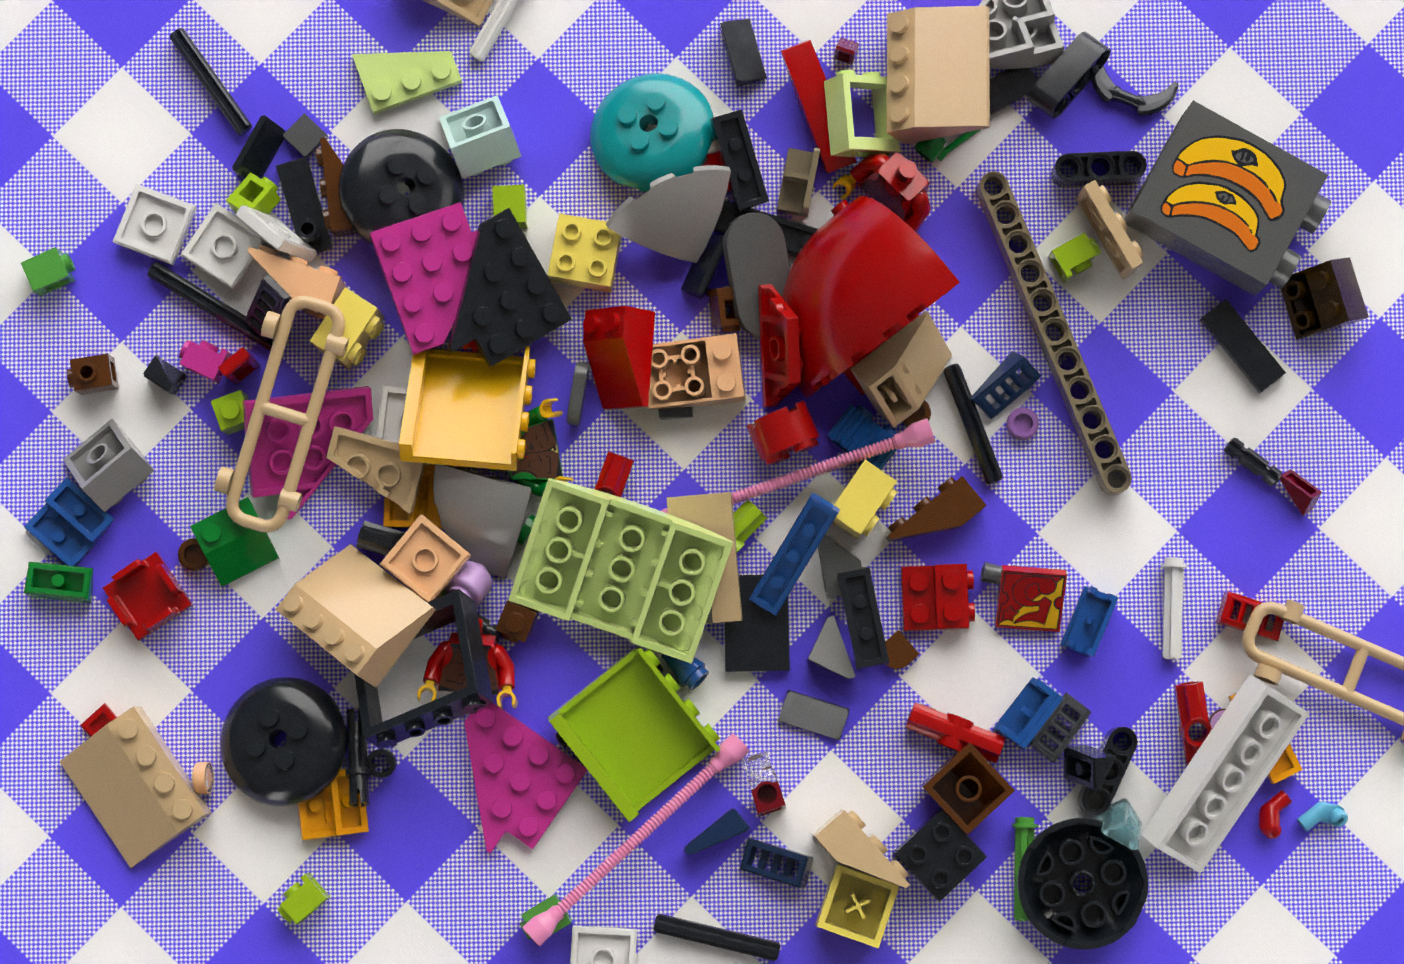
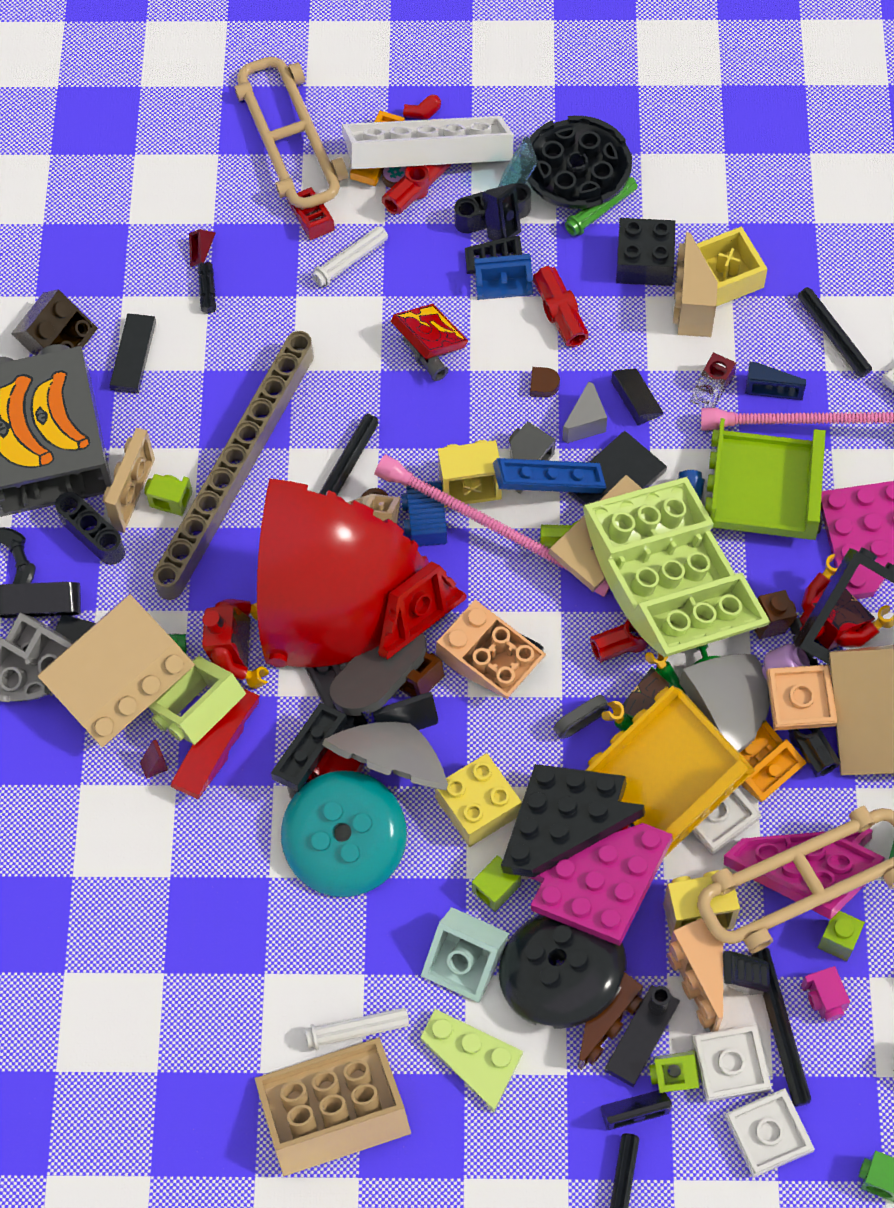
camera: 130 degrees left, 20 degrees down
(164, 375) = (868, 1013): black slope -> none
(239, 366) = (807, 956): red tile -> none
(276, 233) = (686, 1019): white plate -> none
(304, 135) = (589, 1086): dark grey tile -> none
(377, 464) = (771, 799): tan wing -> none
(620, 354) = (526, 705): red slope -> none
(742, 51) = (222, 831): black slope -> none
(783, 432) = (474, 557): red brick -> none
(798, 181) = (282, 707): dark tan panel -> none
(803, 871) = (755, 324): dark blue slope -> none
(863, 618) = (547, 403): black piece -> none
(936, 597) = (484, 387): red plate -> none
(945, 512) = (426, 427): reddish brown slope -> none
(967, 788) = (590, 265): reddish brown slope -> none
(1011, 392) = (299, 462): dark blue slope -> none
(1022, 423) = (316, 435): medium lavender tile -> none
(1089, 621) = (408, 289): blue hinge -> none
(1325, 813) = (393, 85): medium azure arm -> none

